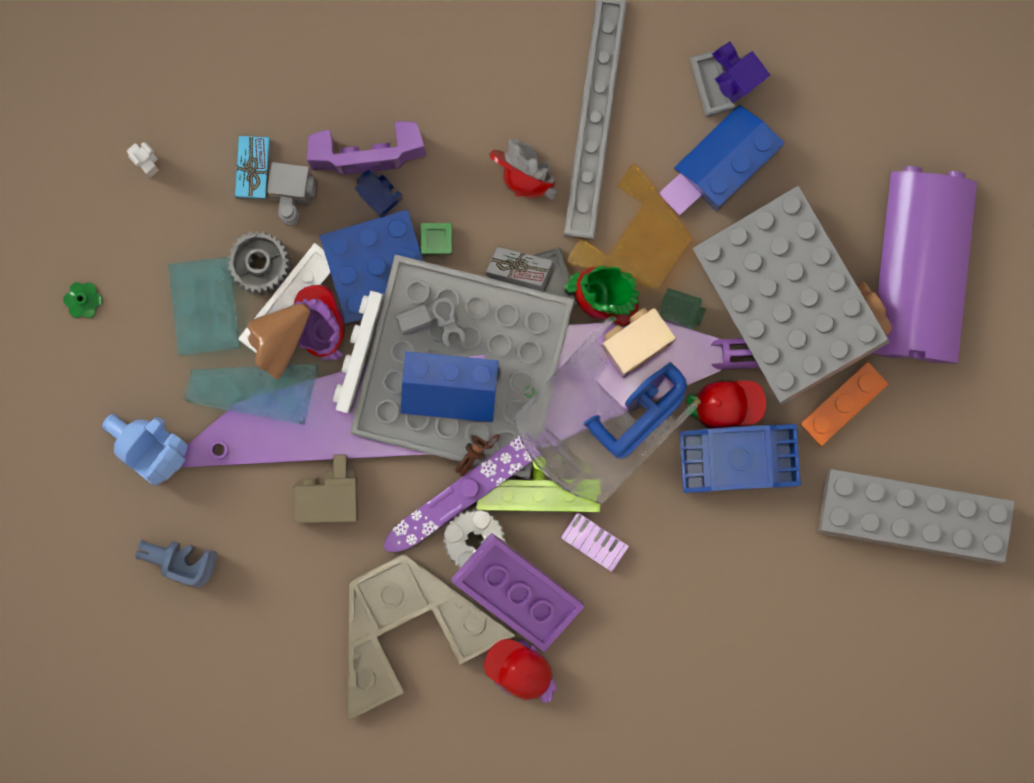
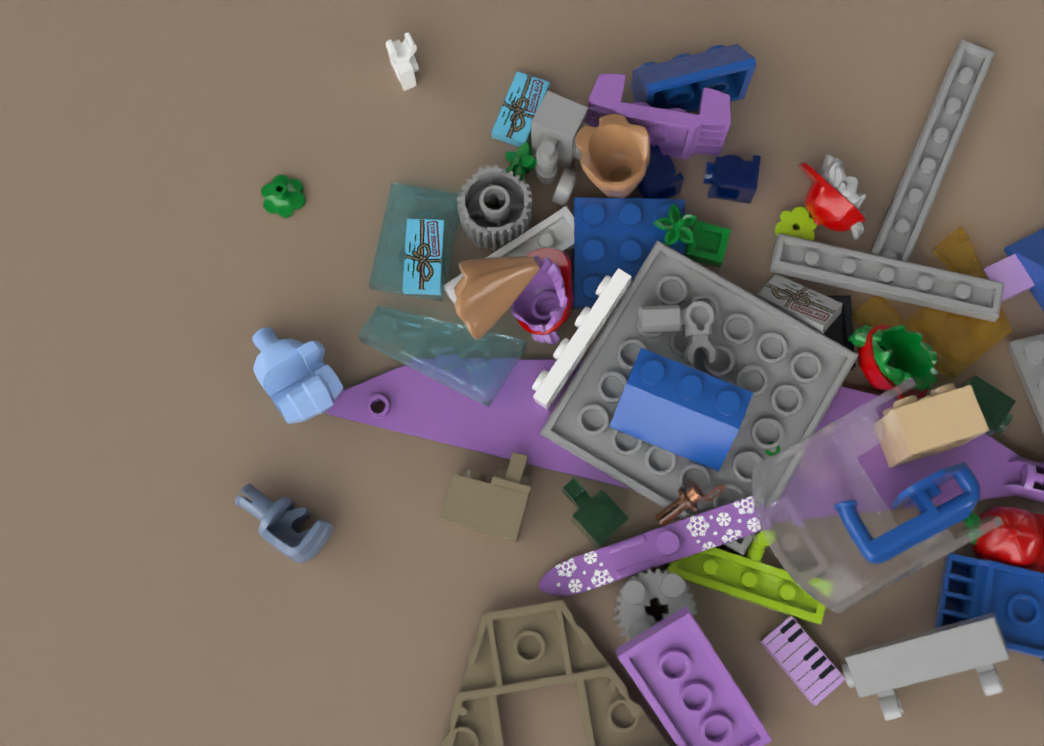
camera: 15 degrees right, 10 degrees down
(215, 321) = (423, 256): none -> medium azure tile
(266, 214) = (521, 161): none -> green plant
(309, 226) = (565, 187): none -> light grey tile
(339, 198) = (614, 154): none -> medium nougat hat
(383, 104) = (683, 78): none -> blue slope
(407, 237) = (676, 227): none -> green plant
(411, 483) = (597, 516): none -> clear green brick
(440, 177) = (732, 178): none -> clear blue brick
(495, 207) = (797, 218): none -> lime plant
(582, 226) = (887, 277): none -> light grey tile
(676, 513) = (927, 656): none -> light grey brick

